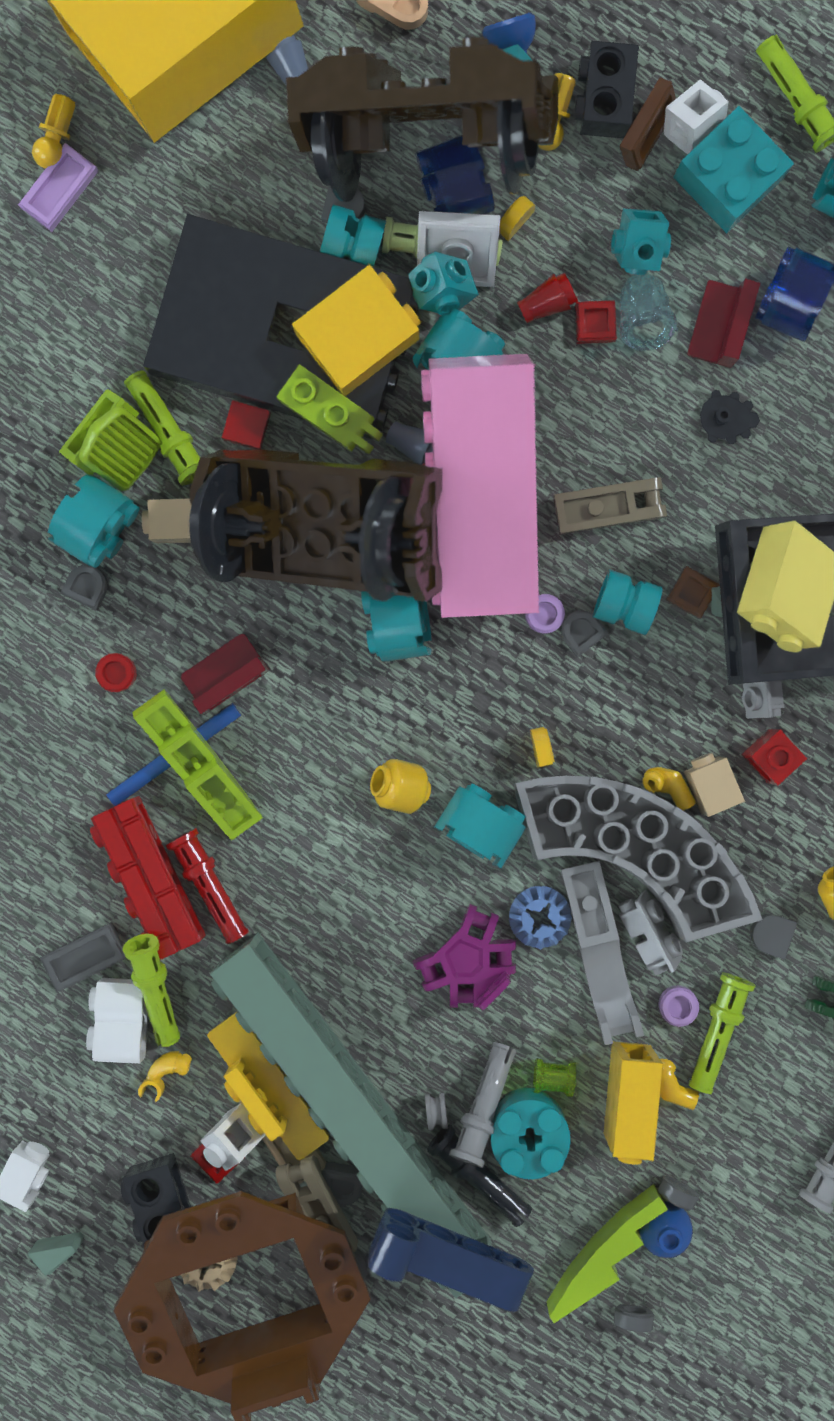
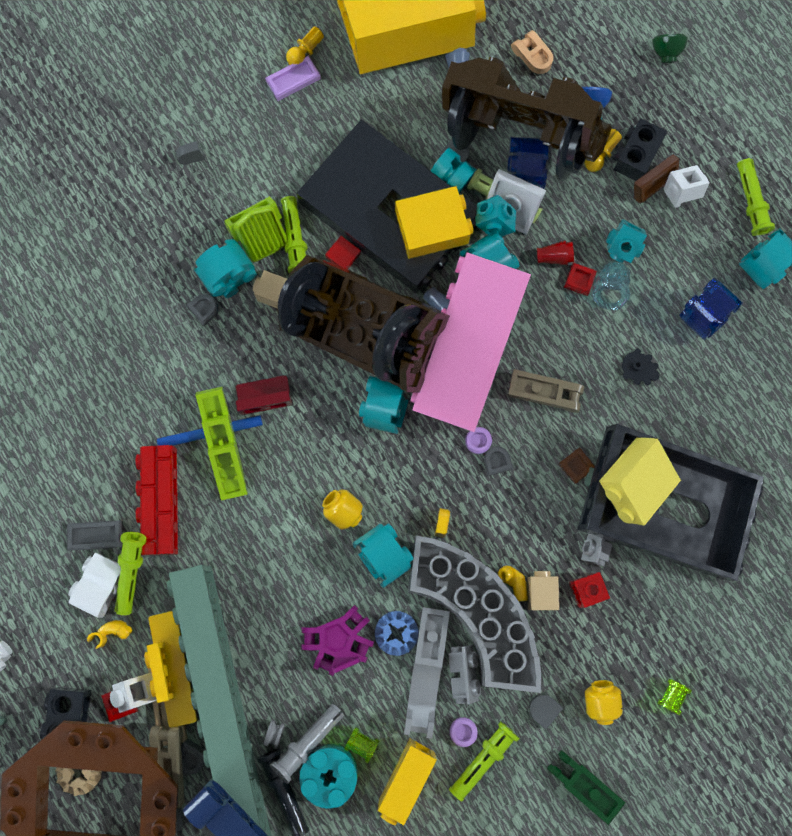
camera: 20 degrees right, 10 degrees down
(115, 672) = (197, 367): red tile -> none
(200, 870) = (193, 510): red pin -> none
(328, 410) = (396, 262): lime hinge -> none
(516, 216) = (556, 199): yellow tile -> none
(627, 602) = (533, 453): teal wheel -> none
(672, 1091) = (435, 788): yellow arm -> none
(723, 322) = (658, 310): dark red panel -> none
(733, 169) = (697, 223): teal brick -> none

